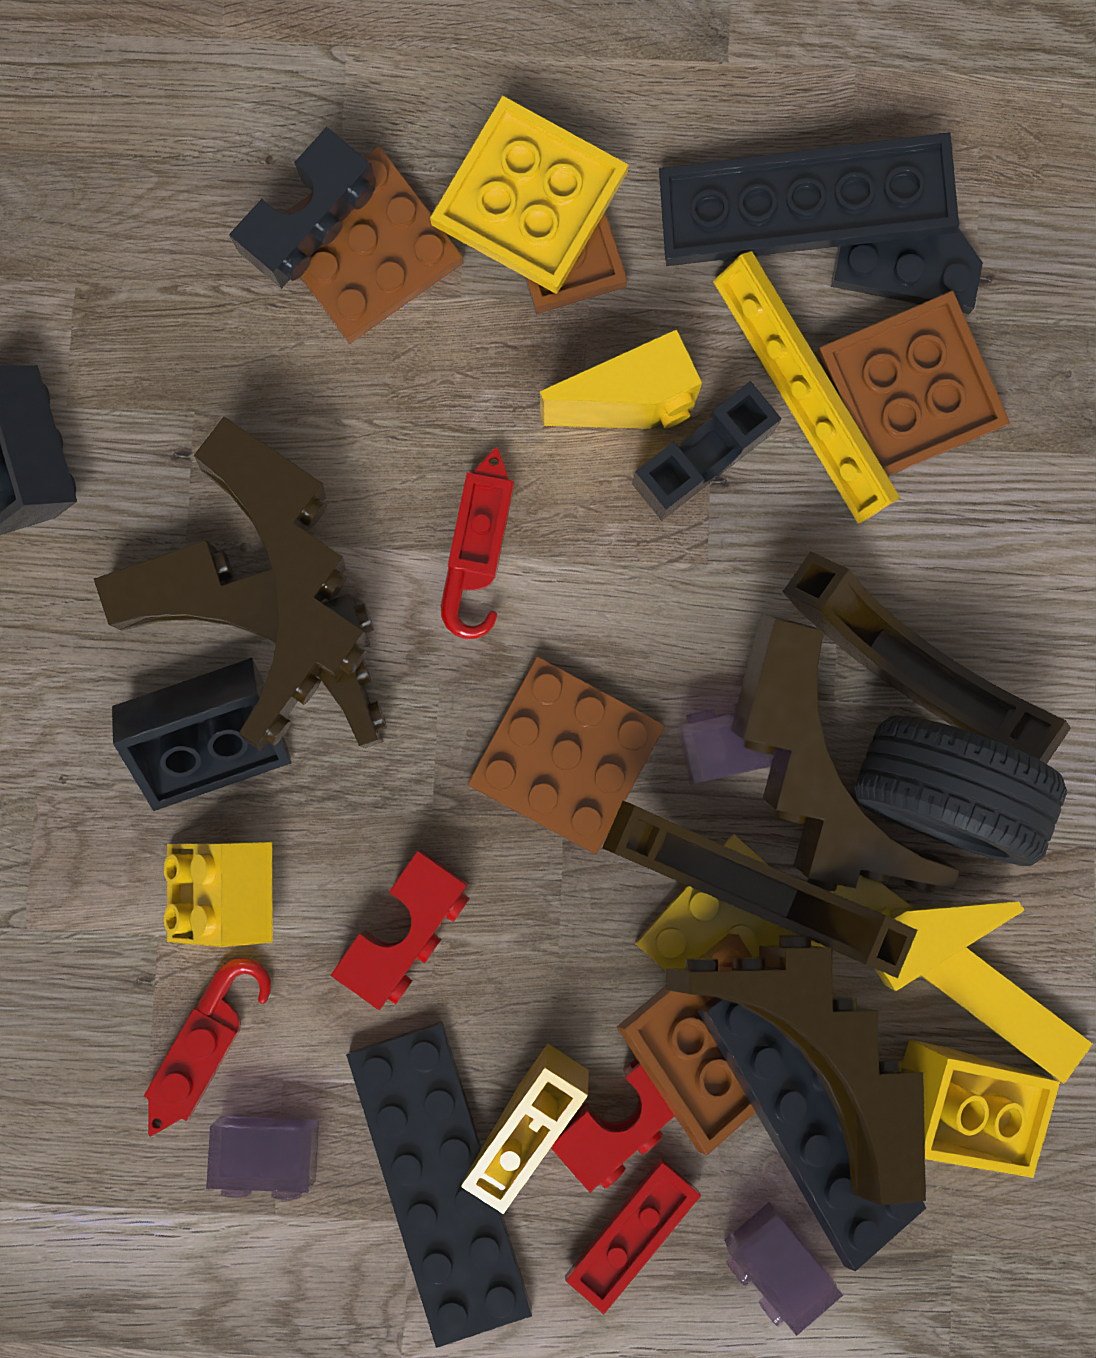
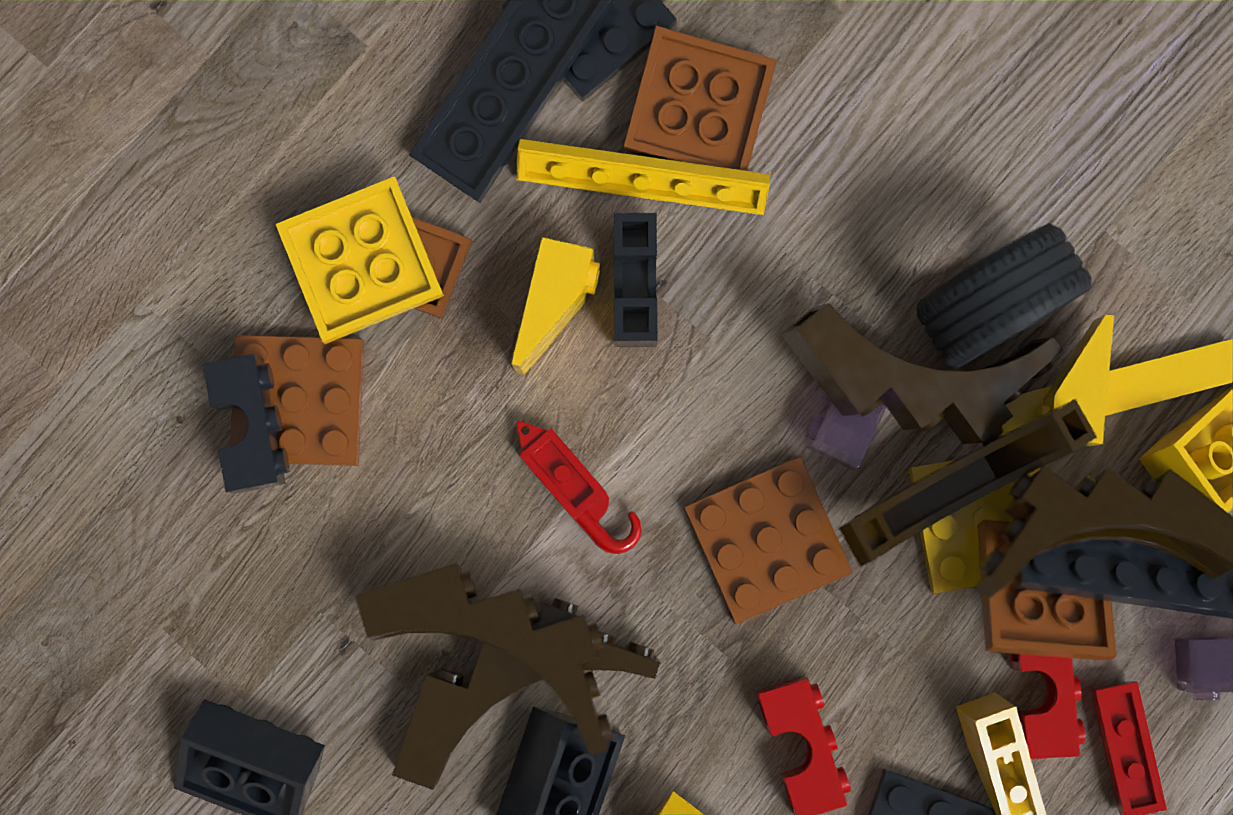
camera: 55 degrees left, 0 degrees up
(889, 649) = (876, 260): dark brown arch -> none

